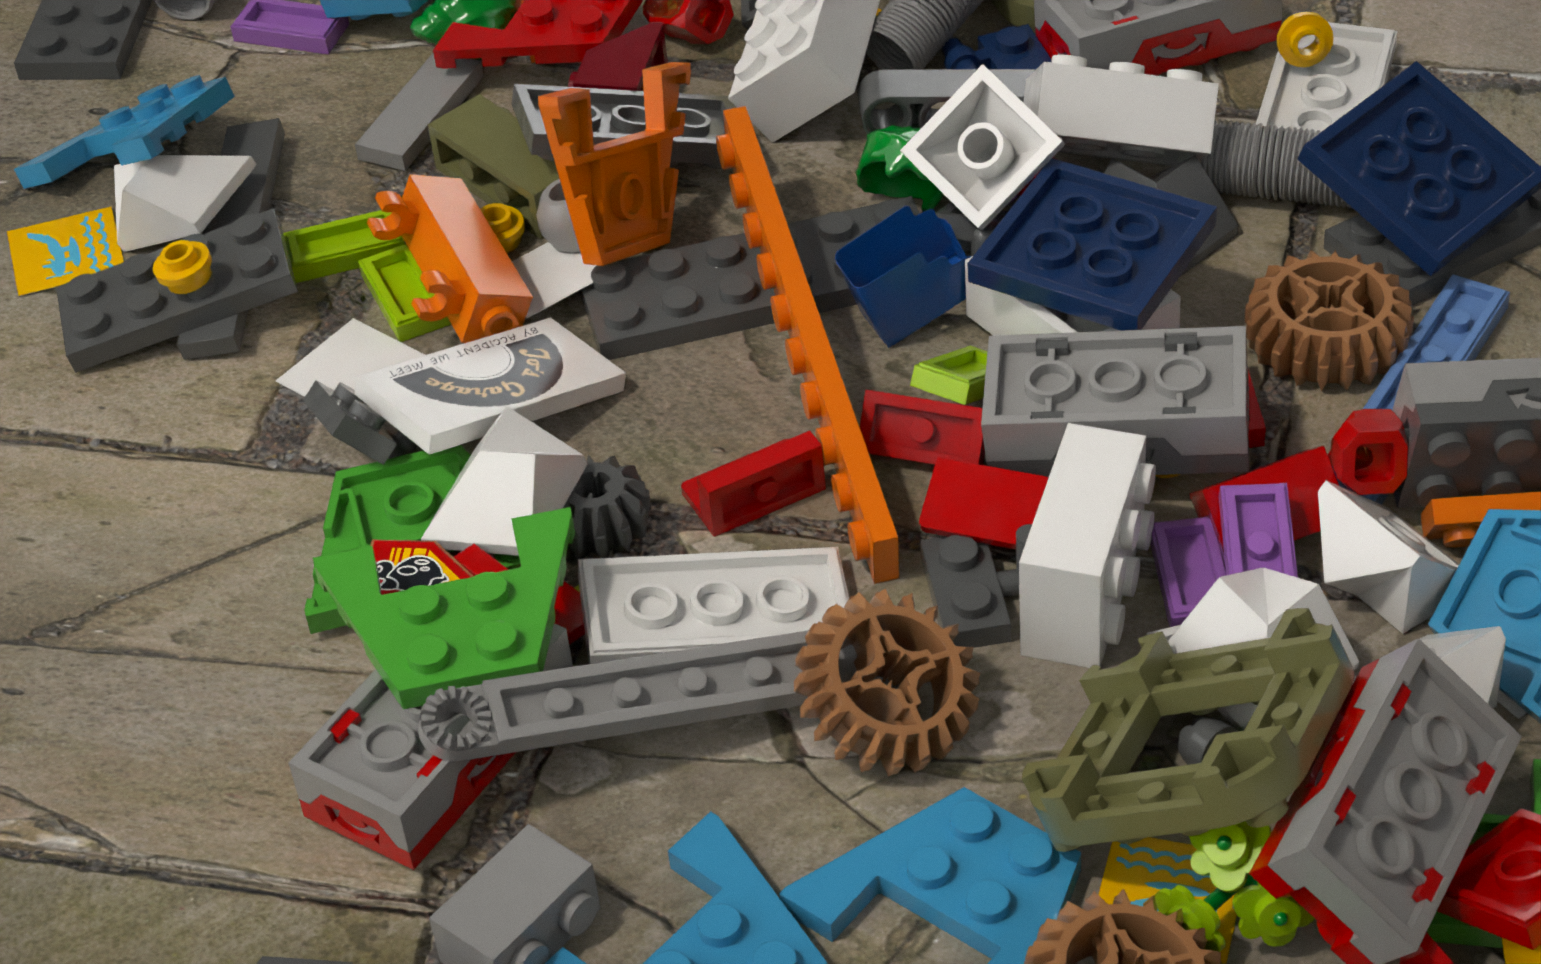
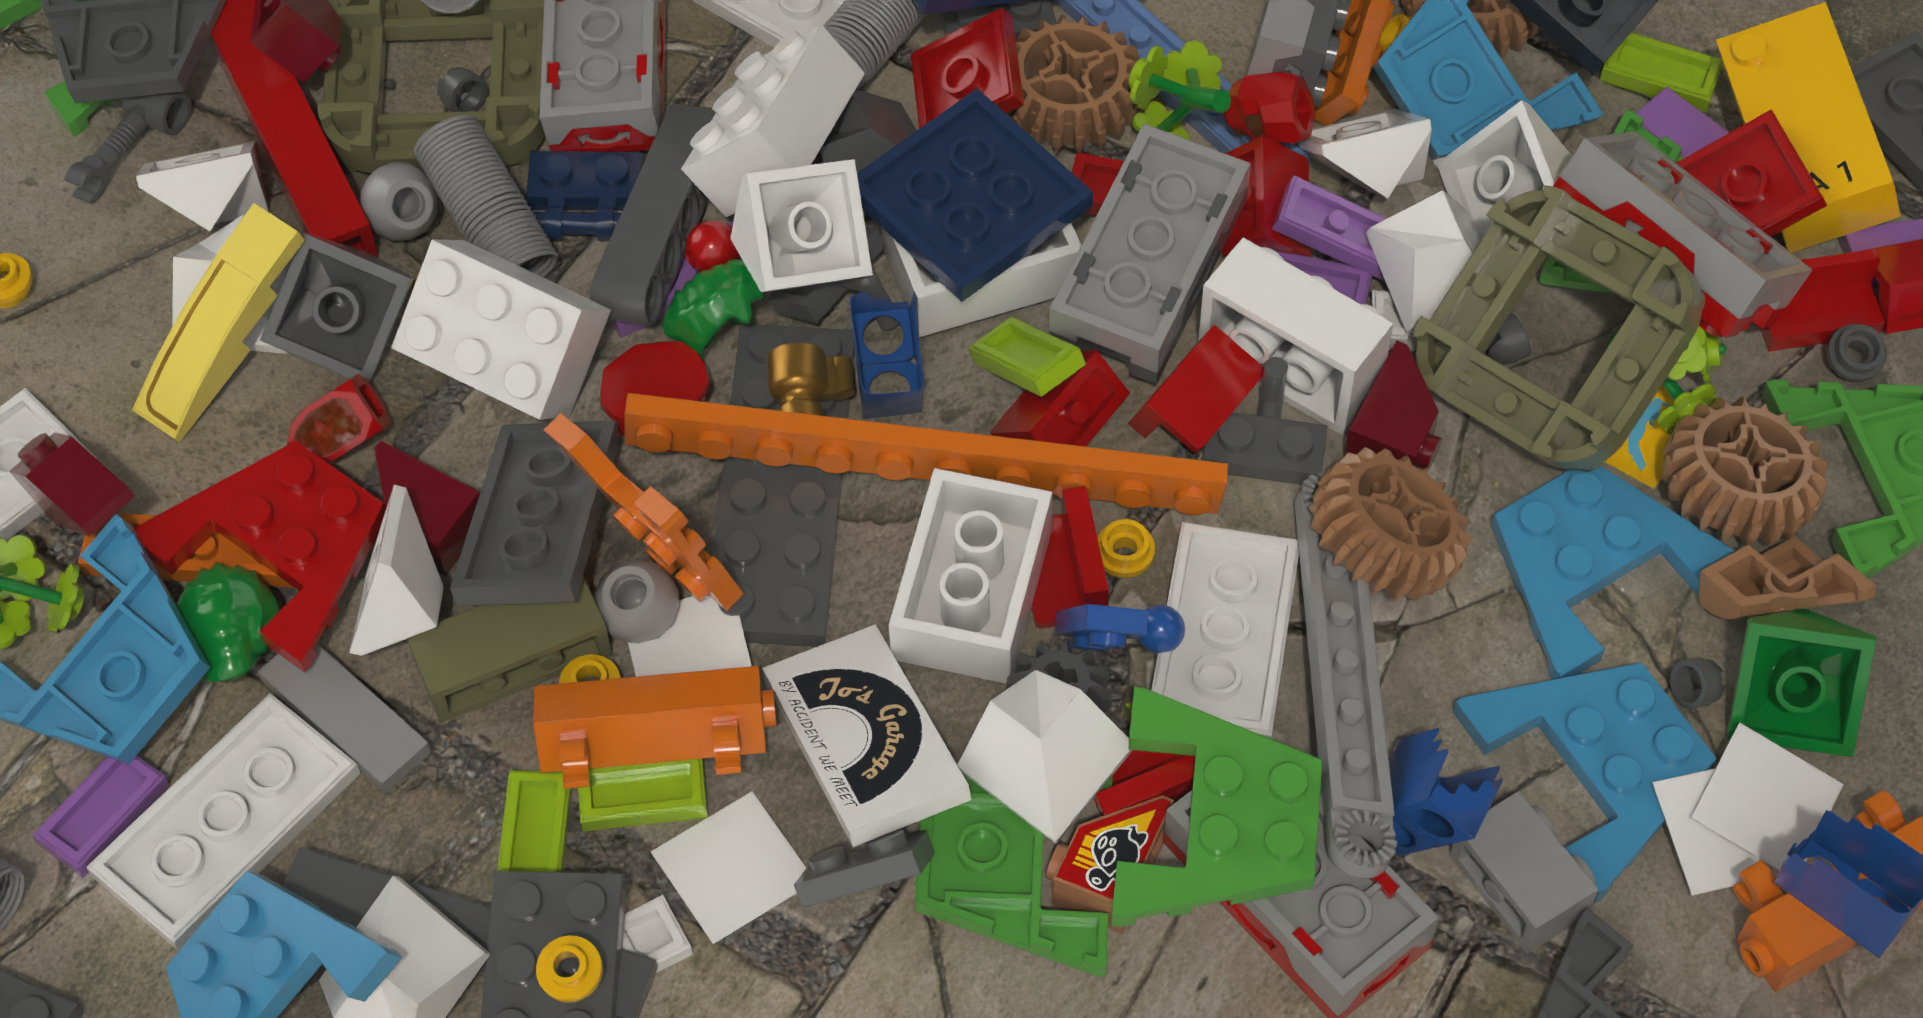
camera: 75 degrees left, 15 degrees up
(268, 339) = (655, 933): none -> white tile
(305, 83) = (223, 819): none -> white tile
(524, 51) = (400, 584): none -> white slope
(566, 790) = (1434, 808): none -> blue piece
(669, 501) = (1107, 627): none -> blue plate
(687, 399) = (971, 575): none -> white brick
(788, 515) = (1131, 535): none -> yellow plate
(809, 169) = (654, 370): none -> red hat
(835, 226) = (803, 376): none -> pearl gold piece
(1036, 668) = (1397, 413): none -> dark red slope
(1278, 241) = (970, 58): none -> red tile
(1338, 349) = (1186, 73): none -> lime plant

